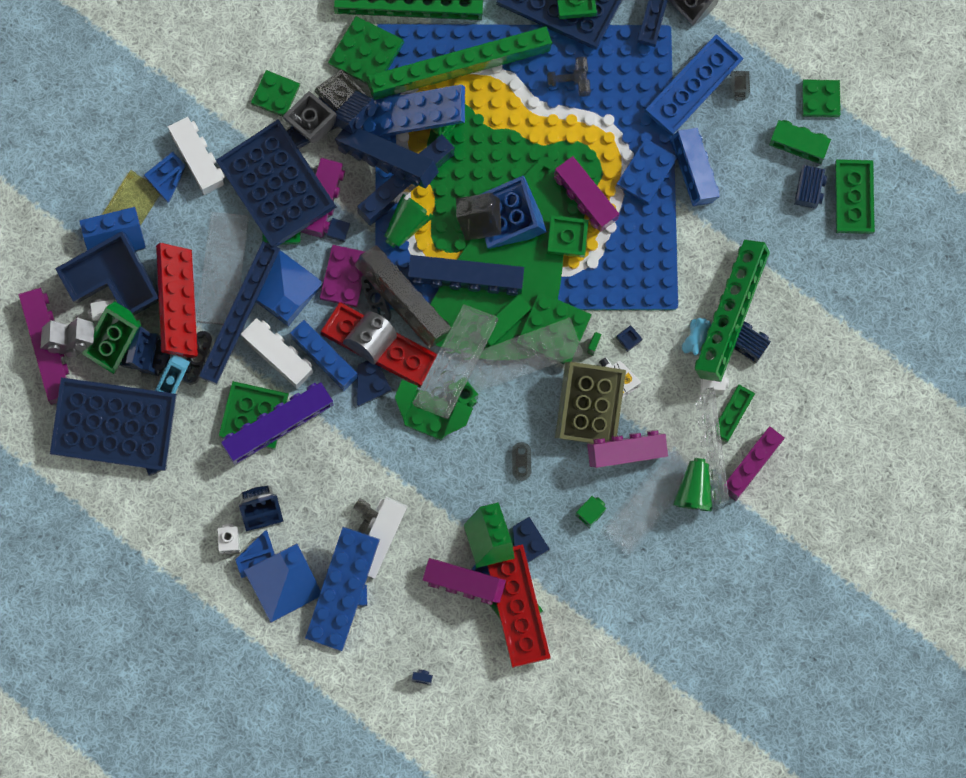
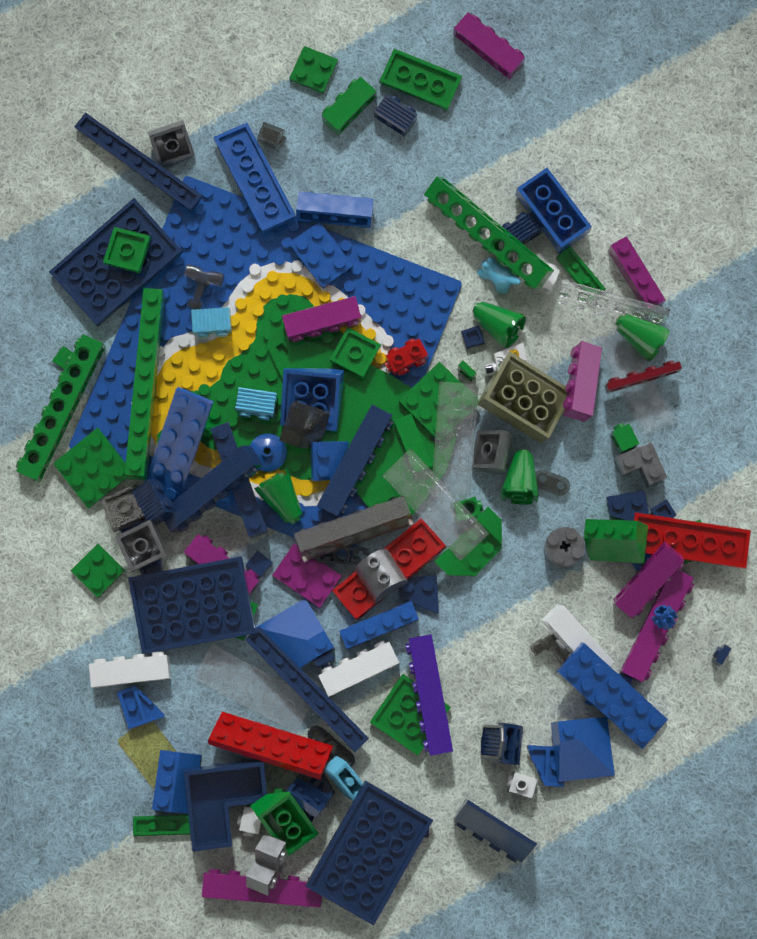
camera: 60 degrees left, 5 degrees up
(68, 234) = (160, 825): none -> green tile
(177, 527) = (494, 830): none -> dark blue slope
(273, 320) = (325, 660): none -> dark blue plate
(425, 607) = (650, 638): none -> magenta brick
(433, 606) = (664, 617): none -> blue gear
(438, 204) = (278, 451): none -> blue dish
(458, 247) = (326, 458): none -> blue wing
(467, 483) = (569, 537): none -> flat silver brick
(483, 167) = (256, 403): none -> medium azure brick
(511, 430) = (521, 480): none -> green cone
(527, 394) = (492, 451): none -> flat silver brick
(537, 573) = (663, 509): none -> dark blue plate
(542, 99) = (211, 322): none -> medium azure brick
(577, 536) = (643, 460): none -> flat silver brick
(583, 283) = (406, 357): none -> red brick
(651, 356) = (499, 322): none -> green cone
(660, 509) = (634, 378): none -> dark red plate
(780, 362) = (553, 210): none -> blue brick
(915, 244) = (489, 45): none -> magenta brick

